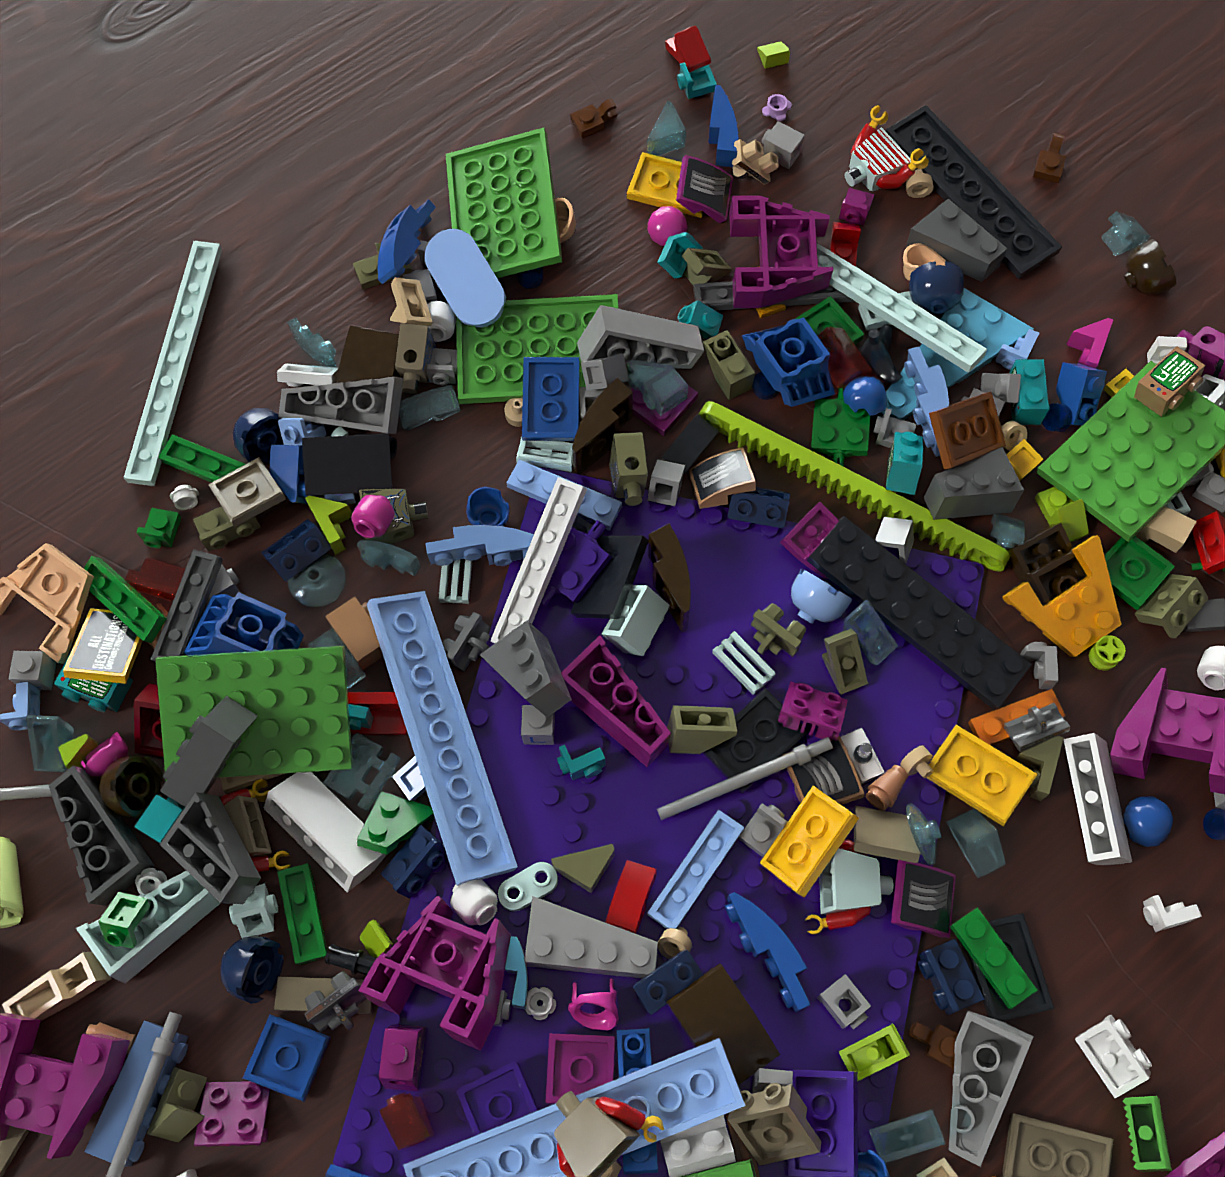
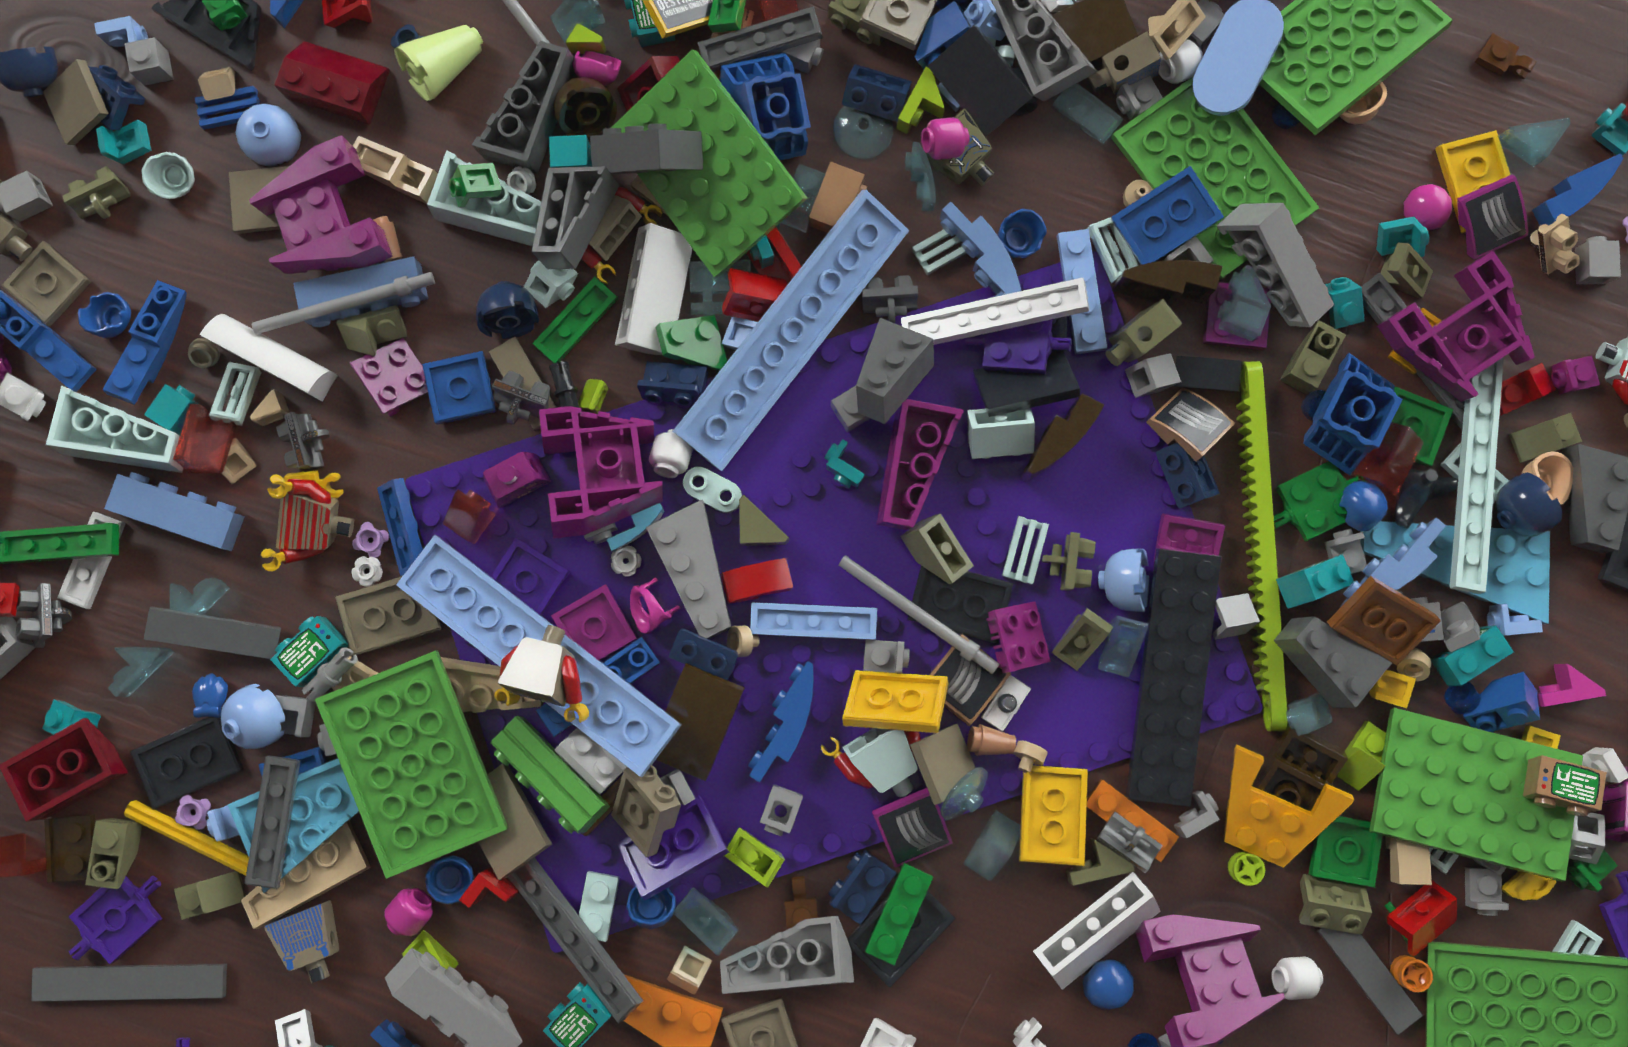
camera: 55 degrees right, 15 degrees up
(387, 748) = (751, 294): none -> red panel
(603, 371) = (1220, 249): light grey panel -> none
(890, 251) = (1545, 437): none -> olive slope

